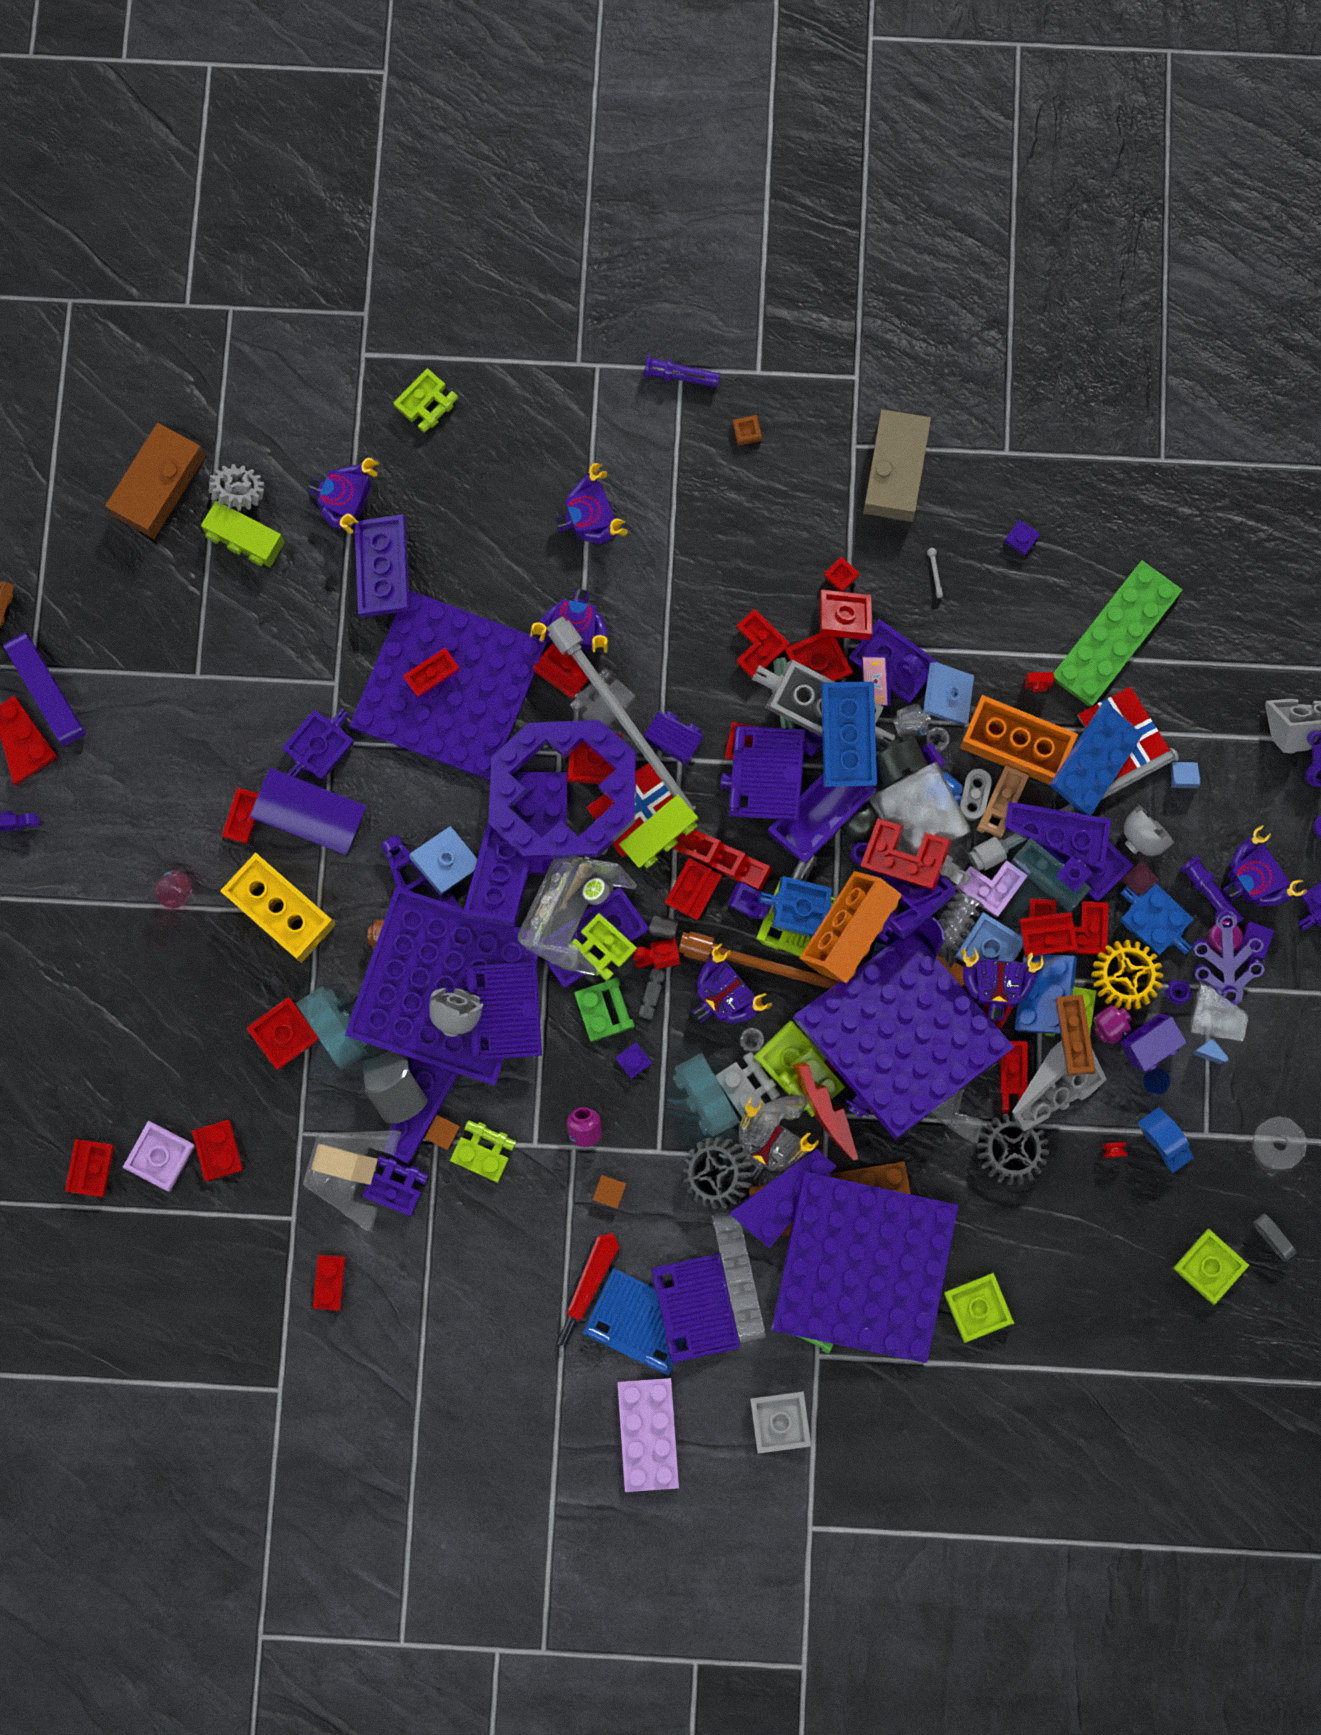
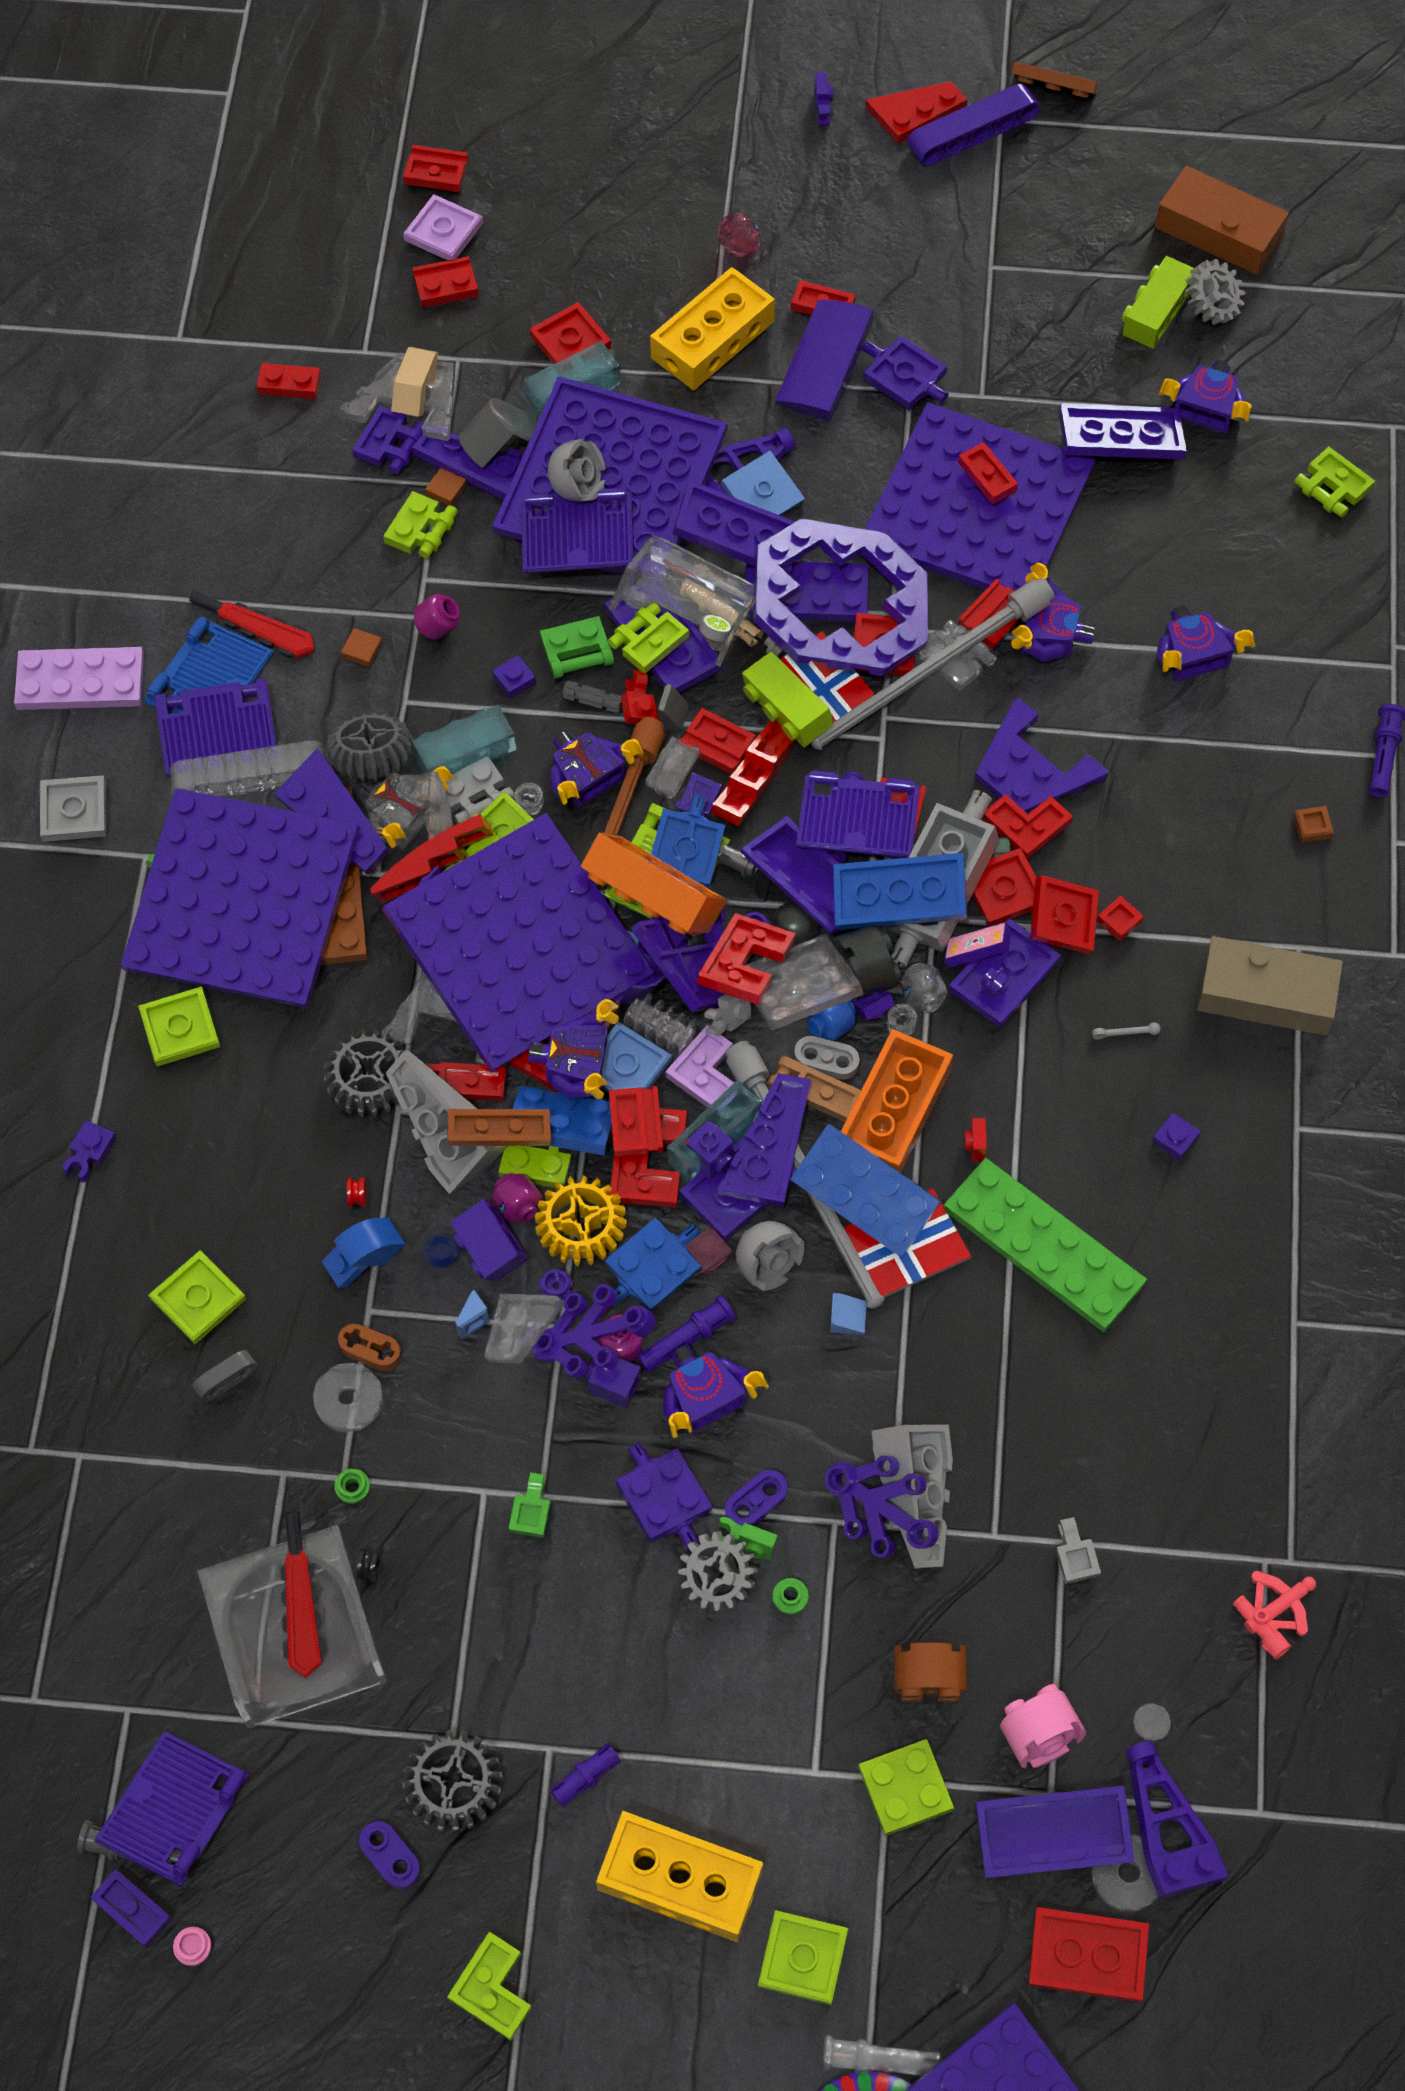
camera: 90 degrees right, 15 degrees down
(674, 737) = (907, 725): dark purple brick -> none
(711, 650) = (1025, 774): none -> dark purple wing
(723, 922) = (672, 767): none -> clear hips
(948, 693) = (961, 1026): medium blue plate -> none
(1086, 1369) = (89, 1146): none -> dark purple plate
(1233, 1127) = (366, 1354): none -> dark orange beam

